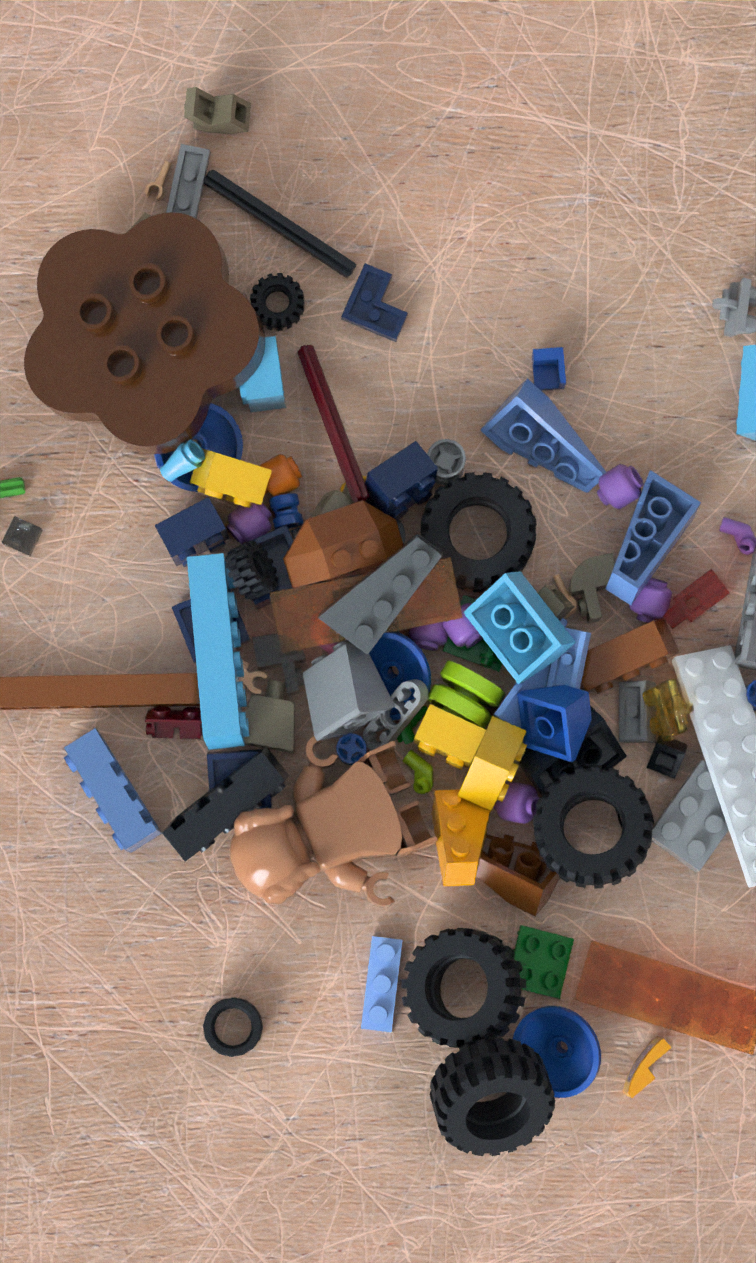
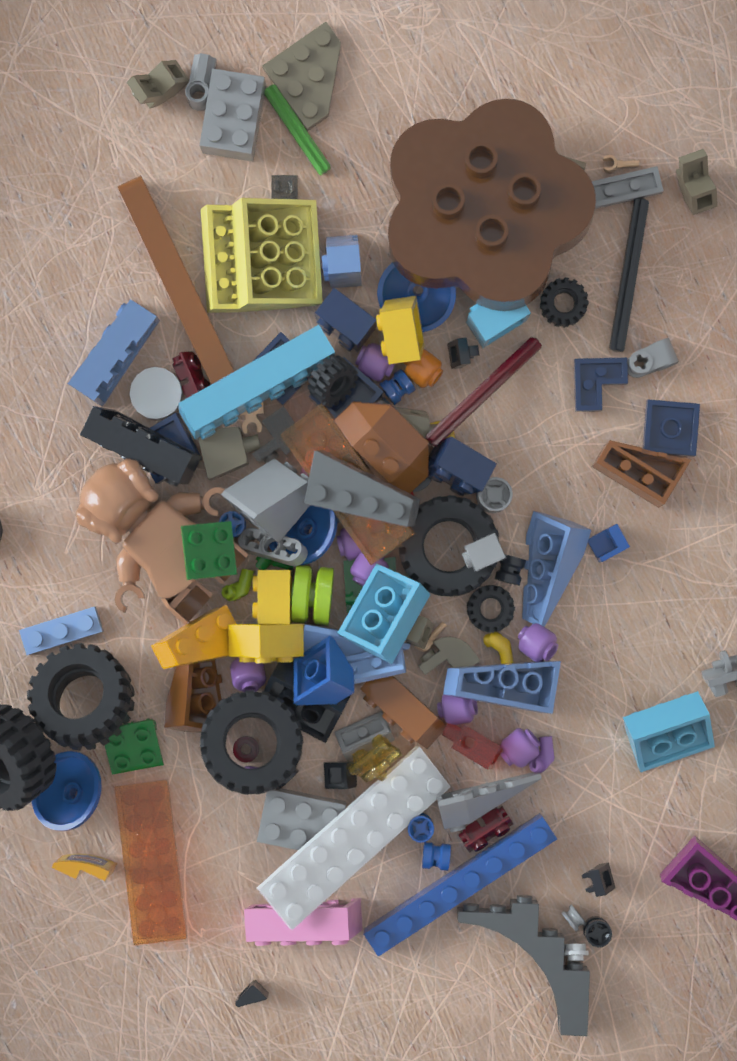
camera: 70 degrees right, 5 degrees up
(81, 591) = (261, 255): none -> light yellow slope
(129, 505) = (342, 261): none -> medium blue wedge
(174, 768) = (156, 393): none -> white tile
(183, 460) = (398, 286): medium azure cone -> none
(281, 430) = (461, 353): none -> black tile
(371, 777) = (208, 550): none -> green hinge
(378, 236) = (655, 358): none -> light grey piece
(458, 252) = (671, 427): none -> dark blue plate
(489, 301) = (641, 471): none -> dark orange wedge
(502, 495) = (483, 552): none -> light grey brick
(530, 481) = (510, 570): none -> black wheel
(570, 503) = (502, 619): none -> black tyre
(595, 832) = (242, 756): none -> plate
(605, 525) = (500, 644): none -> yellow arm
(721, 554) = (520, 747): none -> medium lavender head

